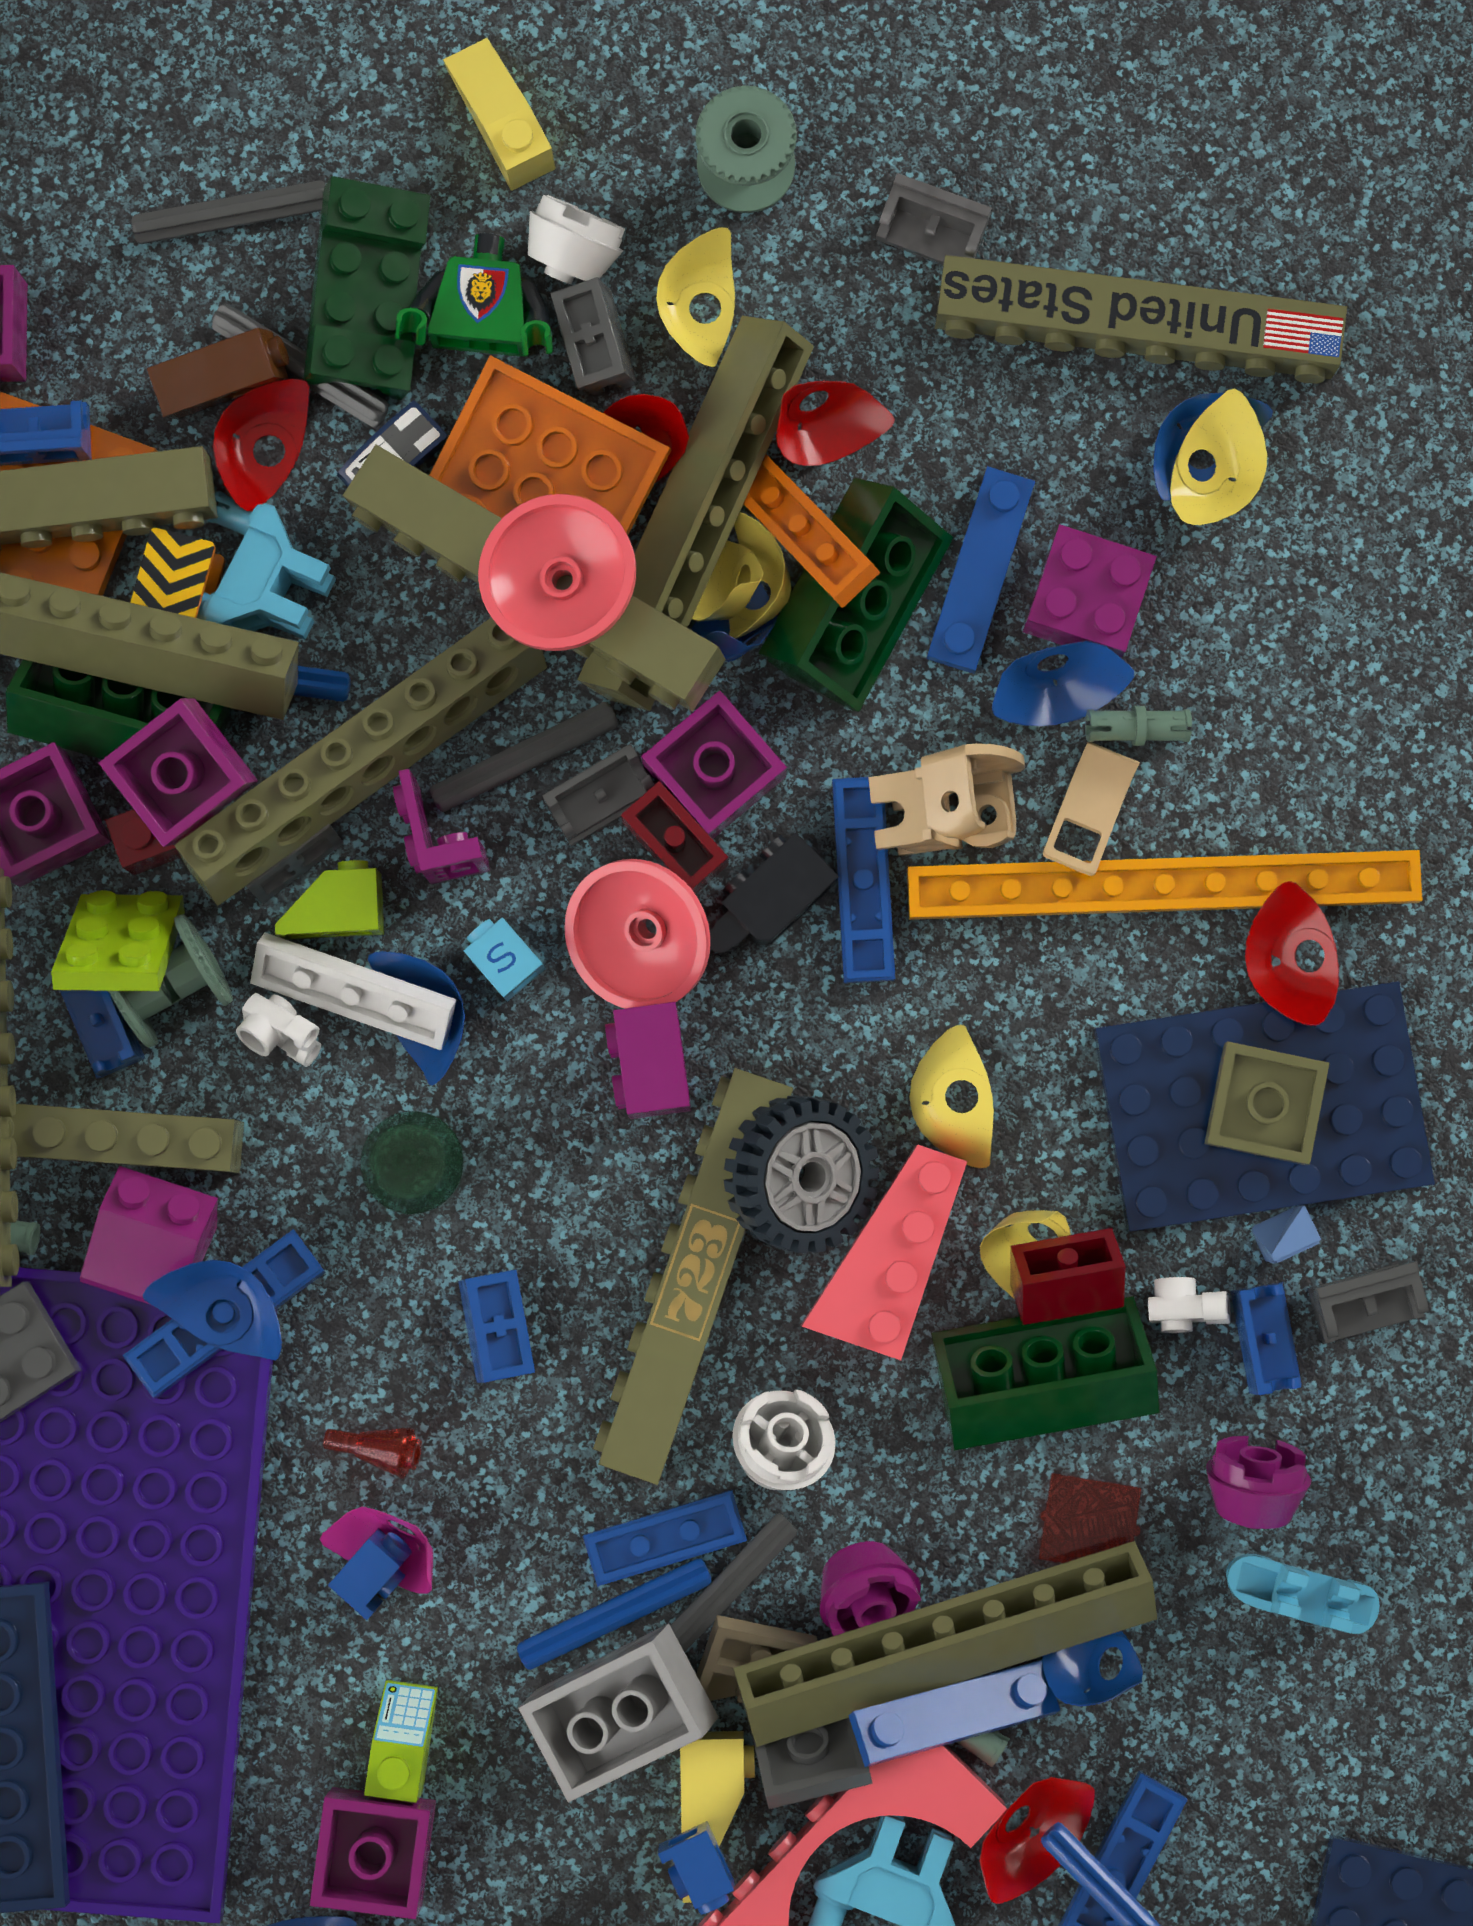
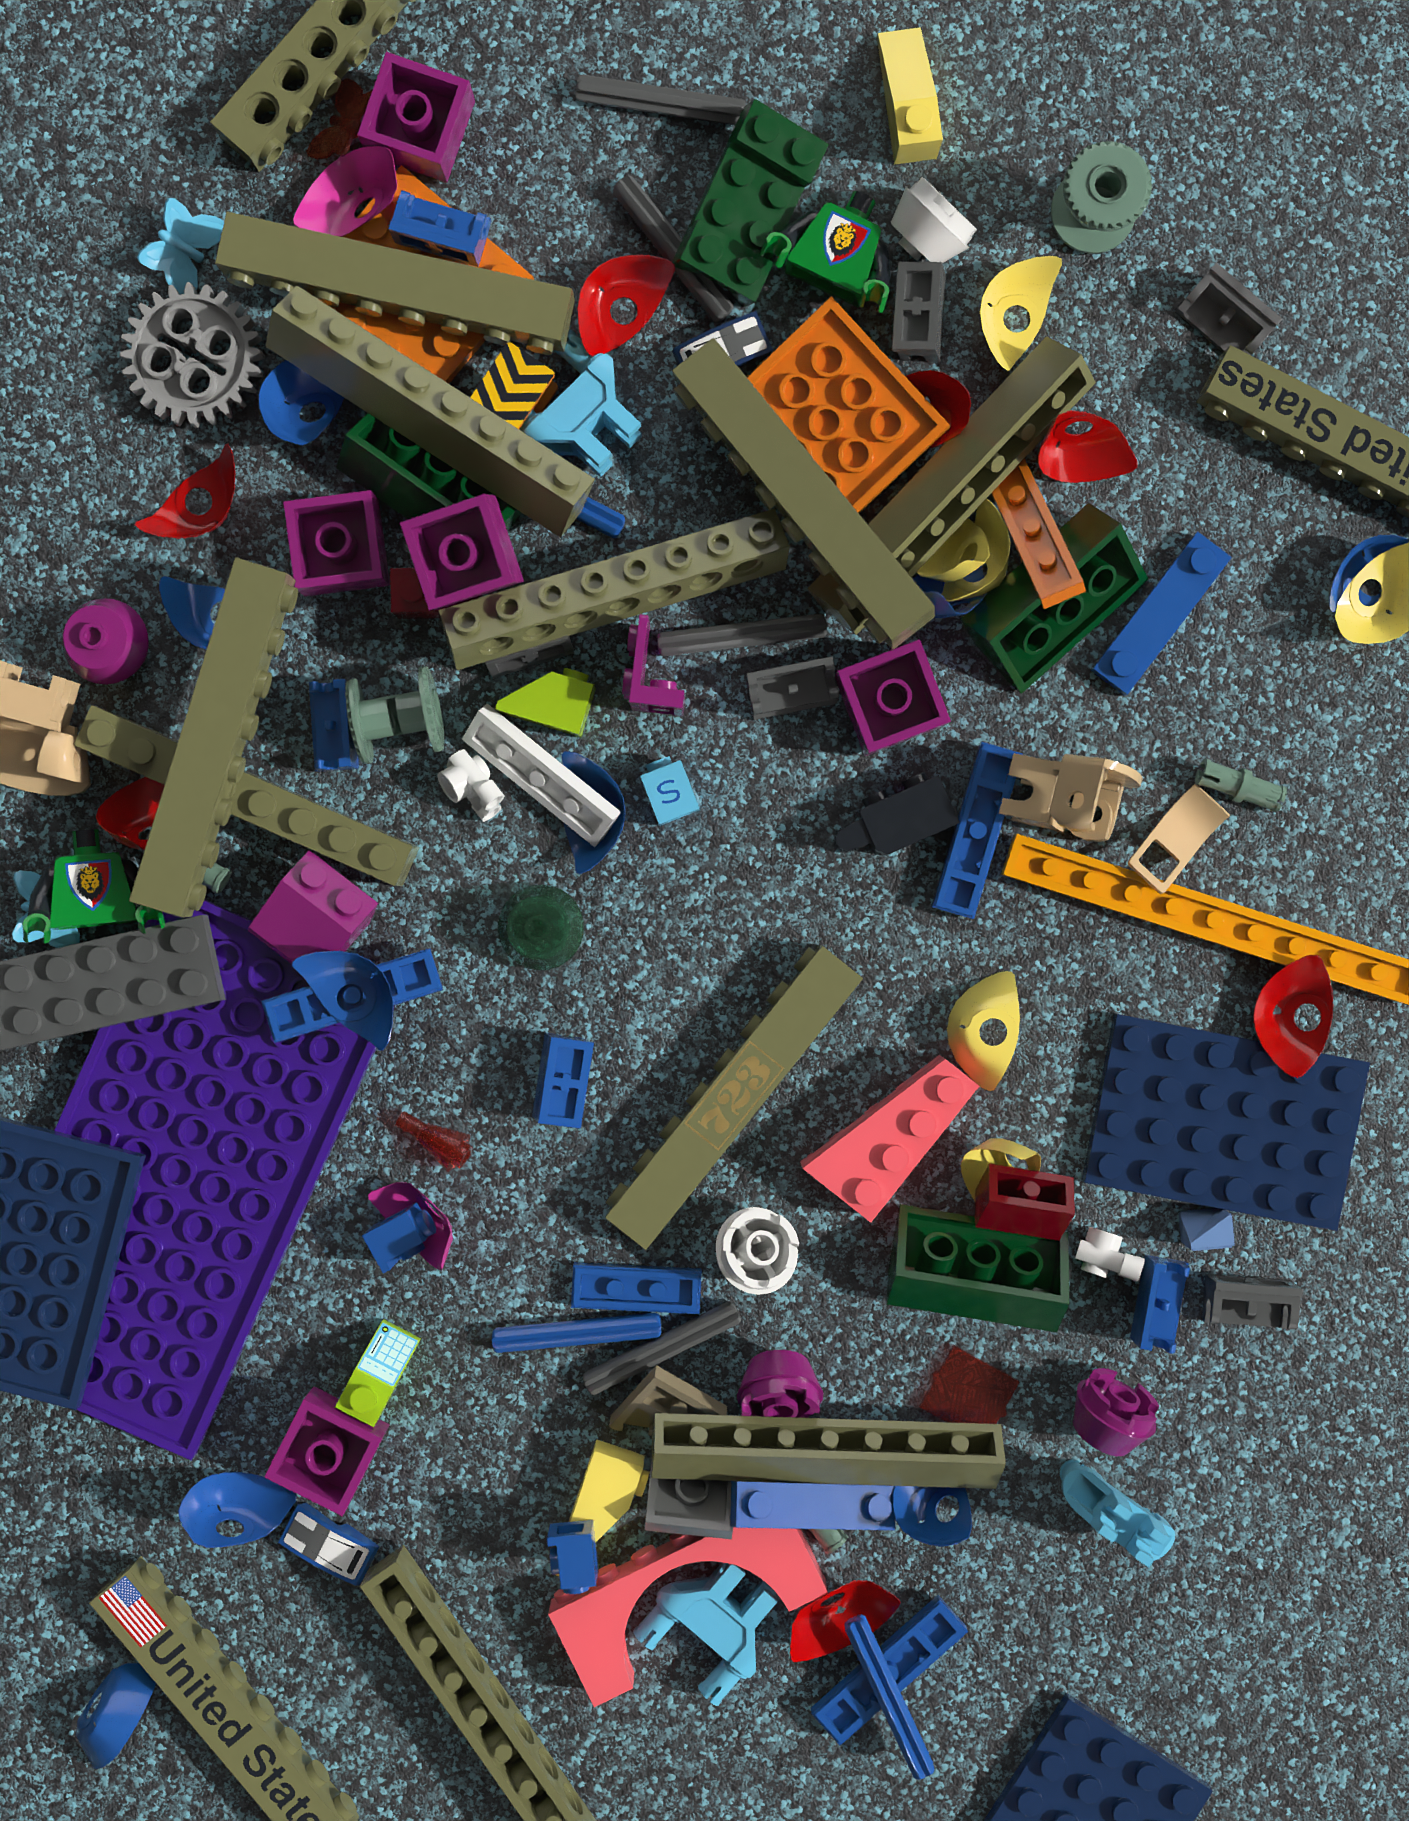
camera: 20 degrees right, 5 degrees up
(118, 942) = (367, 672): lime plate -> none
(218, 372) = (605, 231): reddish brown brick -> none
(539, 546) = (819, 471): coral dish -> none
(615, 948) = (761, 815): coral dish -> none
(618, 1713) = (554, 1414): light grey brick -> none
(650, 1061) = (757, 917): magenta brick -> none
(674, 837) = (839, 745): dark red brick -> none
(768, 1167) = (845, 1048): wheel -> none
(1084, 682) = (1213, 735): blue piece -> none
(1089, 591) = (1242, 665): magenta brick -> none
(1267, 1103) = (1232, 1123): olive plate -> none

